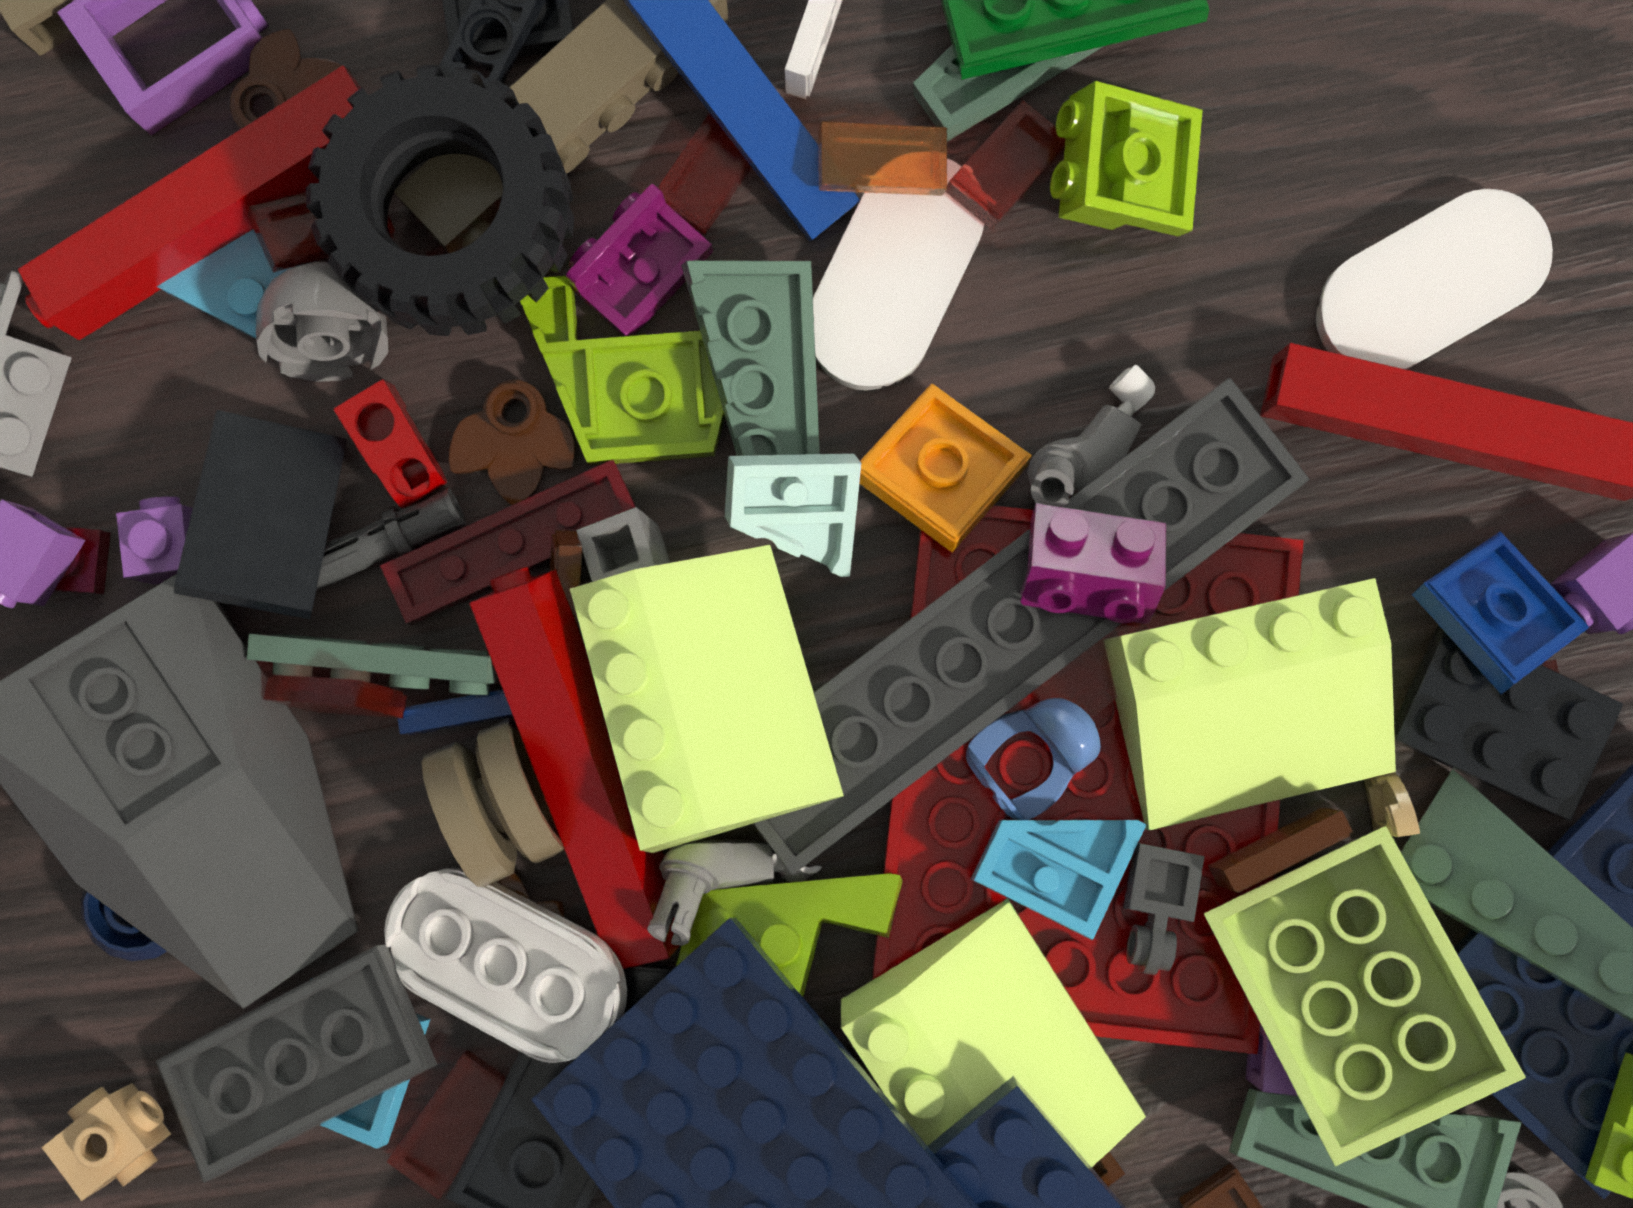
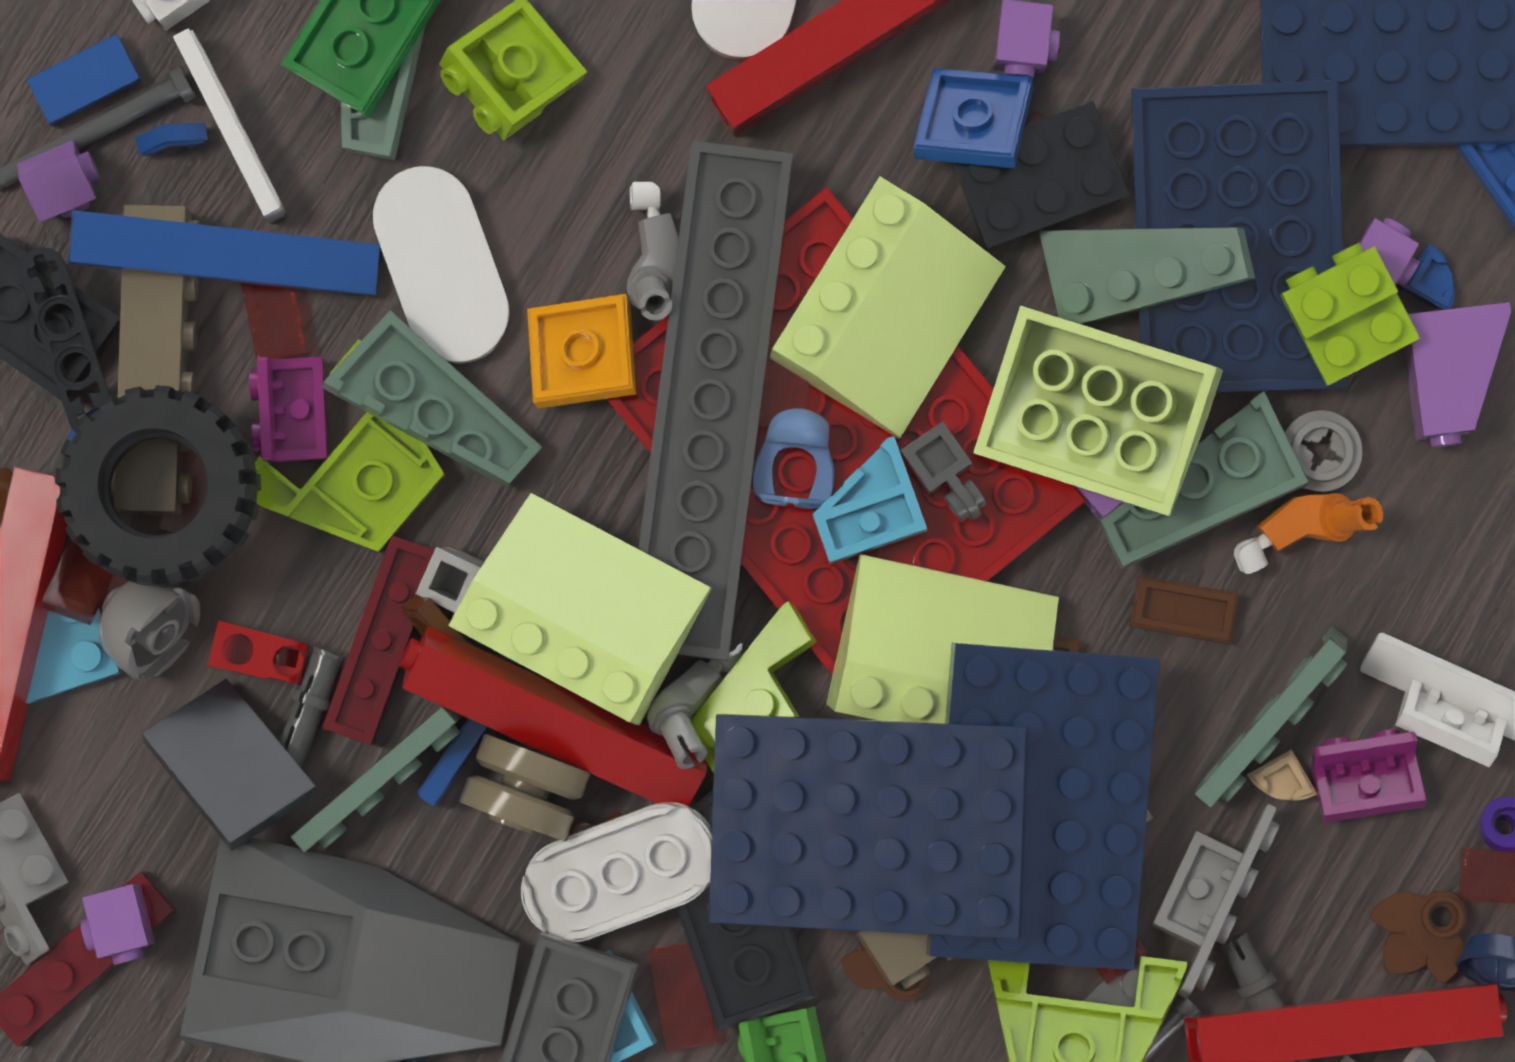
camera: 40 degrees left, 0 degrees up
(153, 539) = (185, 838): medium lavender brick -> none
(335, 696) = (374, 822): clear red tile -> none
(512, 451) = (327, 590): reddish brown plate -> none
(797, 503) = (523, 454): light aqua wing -> none
(882, 158) = (370, 210): clear orange tile -> none
(1006, 165) = (443, 140): clear red tile -> none
(1095, 564) = (720, 322): magenta bracket -> none
(1280, 849) = (981, 375): reddish brown tile -> none
(1391, 805) = (1022, 287): tan tile -> none

